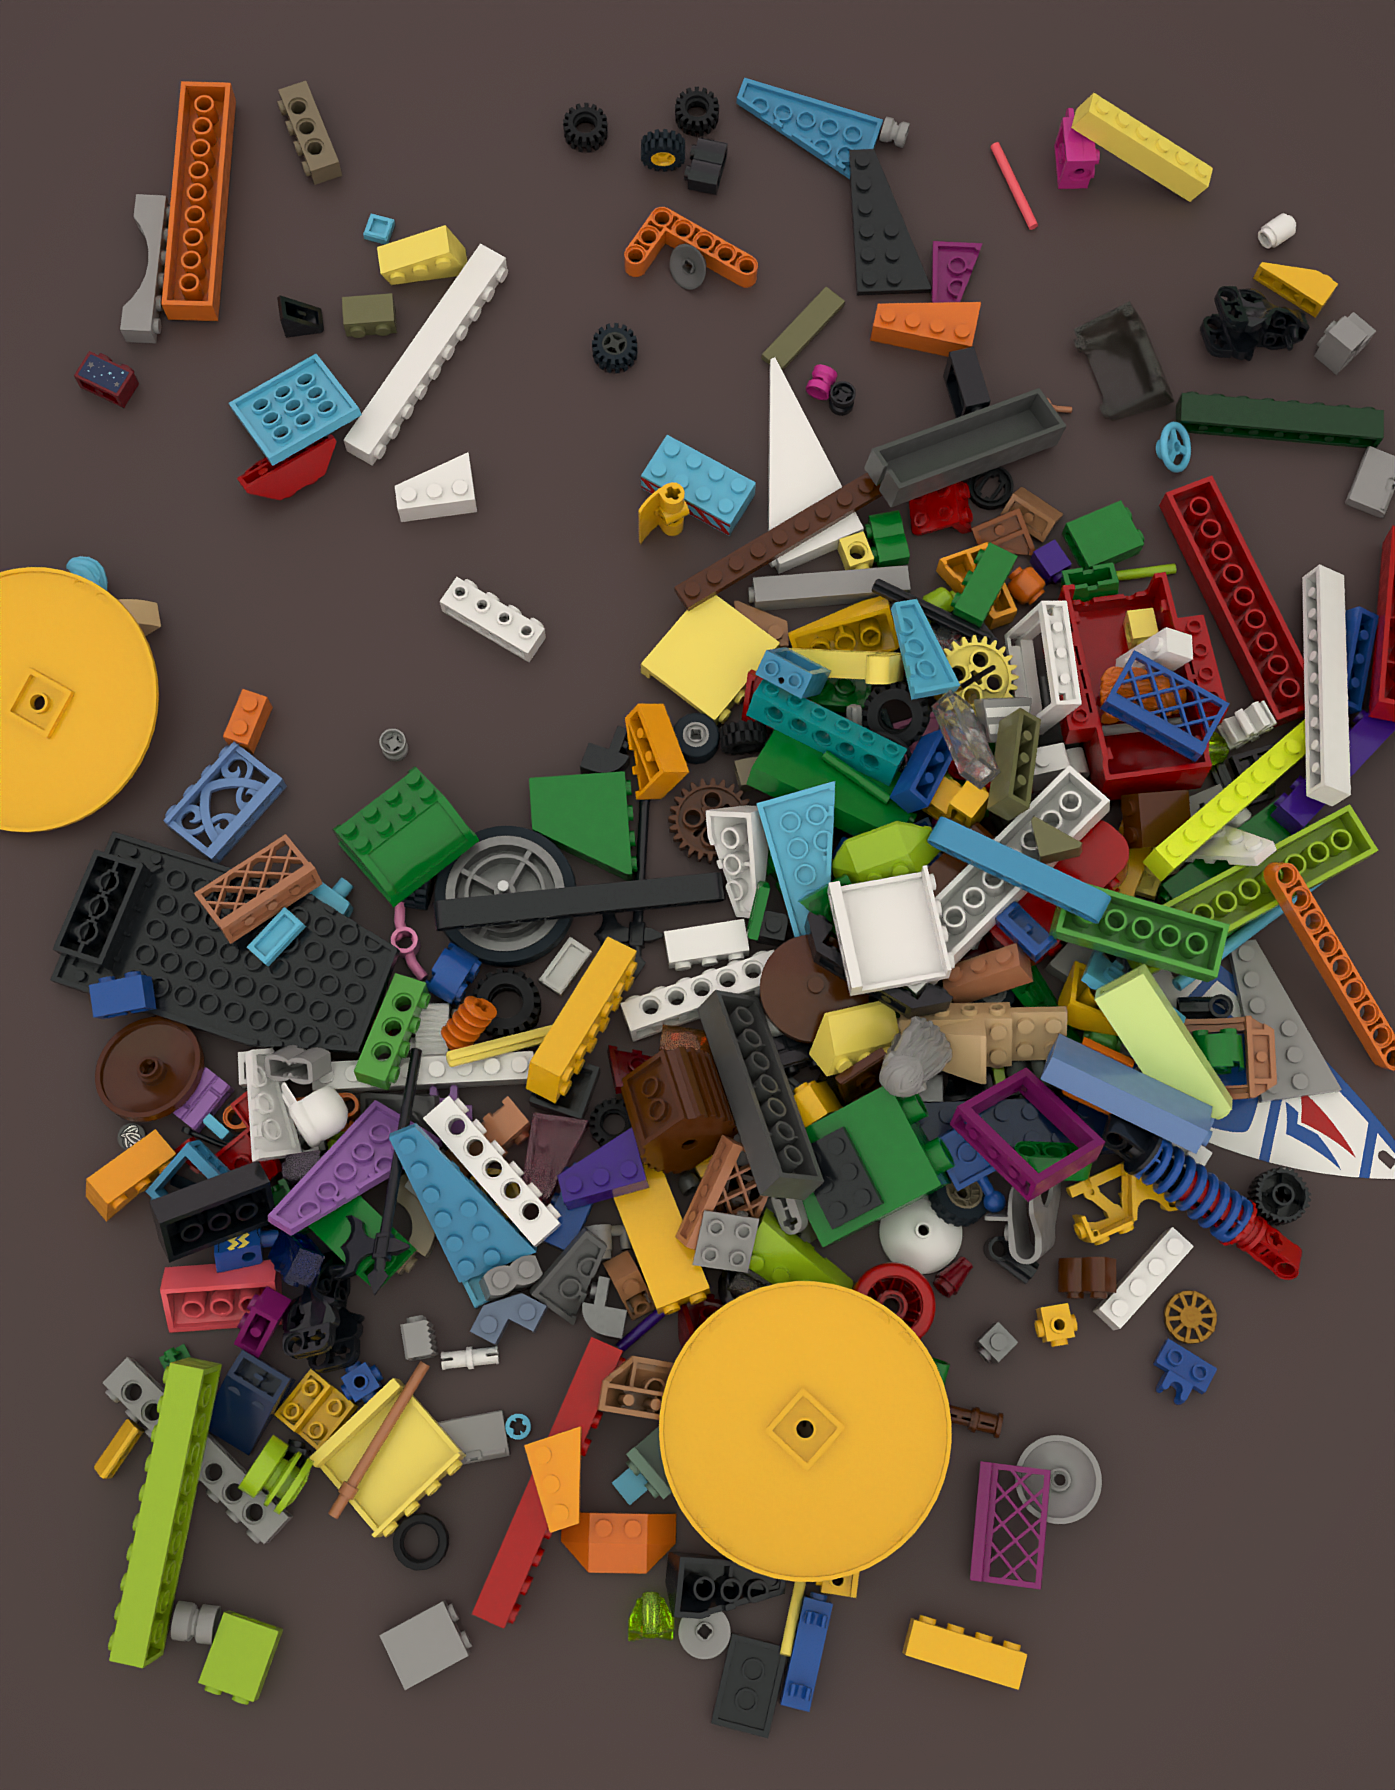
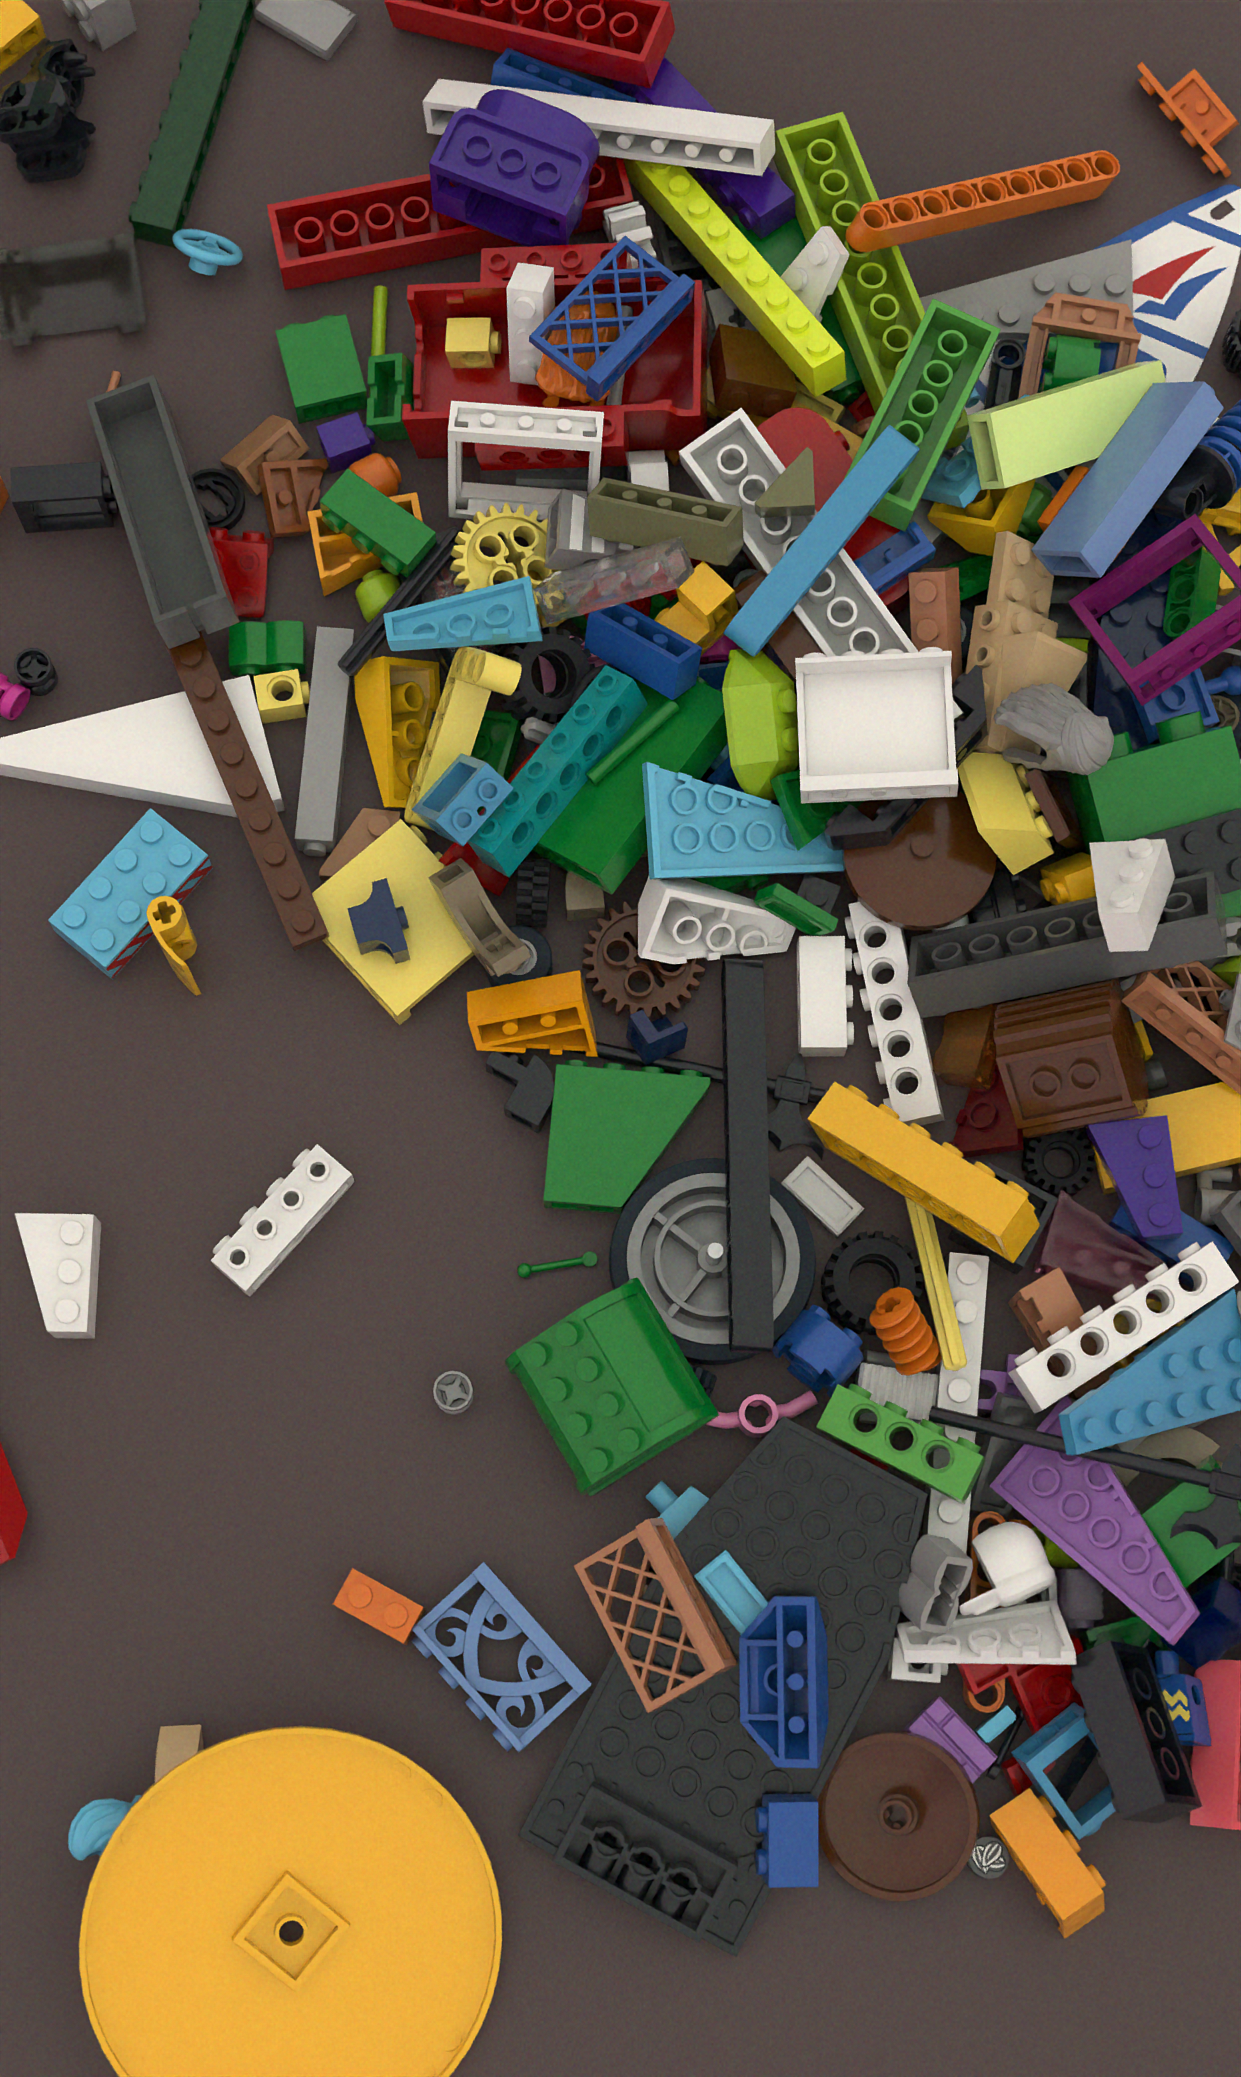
camera: 80 degrees left, 0 degrees up
(218, 975) = (786, 1681): none -> blue wedge
(498, 819) = (588, 1260): none -> green hinge
(656, 836) = (655, 1038): none -> dark blue panel
(700, 639) = (380, 924): none -> dark blue brick
(712, 700) = (478, 920): none -> dark tan arch
(794, 1120) = (1131, 890): none -> white wedge
(1270, 625) = (514, 168): none -> dark purple brick

